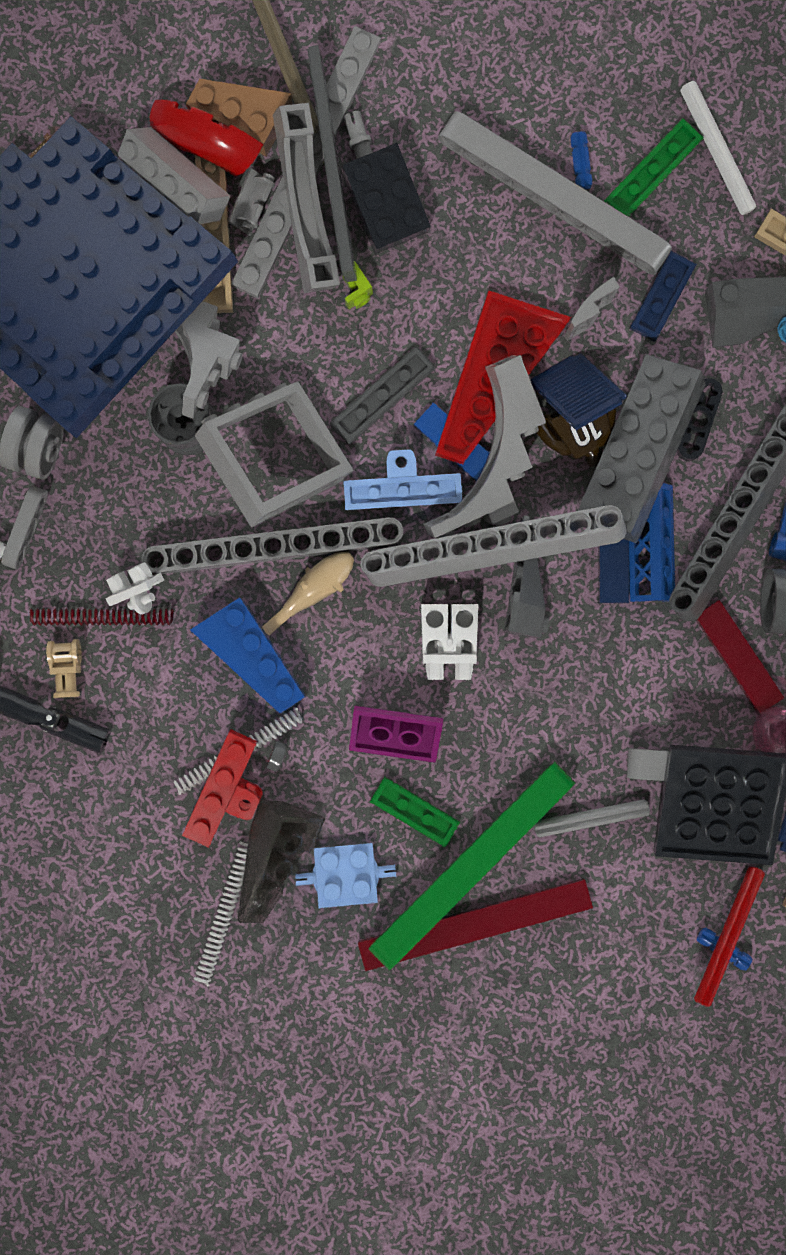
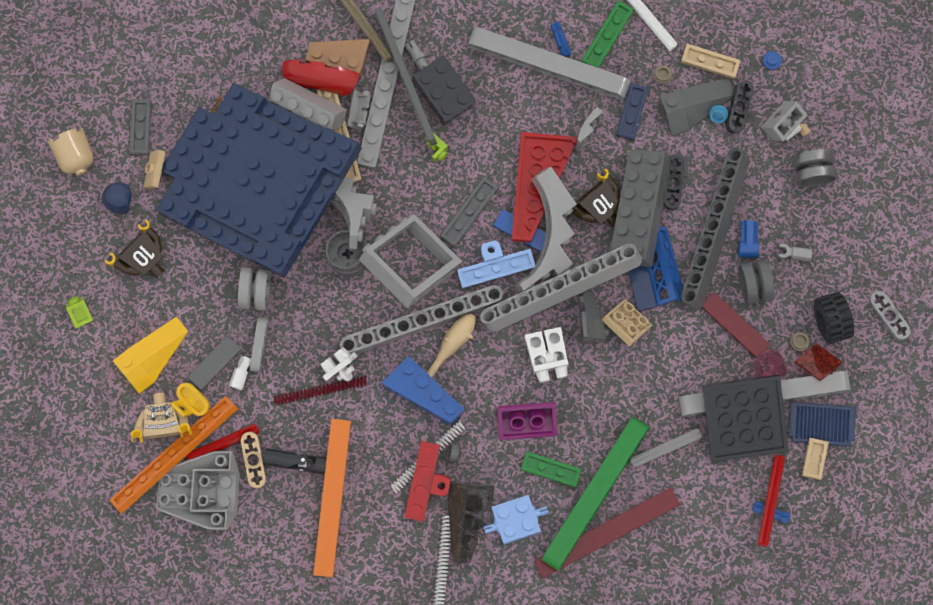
camera: 10 degrees left, 10 degrees down
(64, 667) = (303, 424): tan connector -> none
(80, 783) = (332, 498): none -> orange tile
(295, 147) = (380, 69): light grey arch -> none
(578, 390) = (592, 180): dark blue window -> none
(579, 619) = (627, 322): none -> tan tile
(722, 249) = (662, 74): none -> dark tan plate

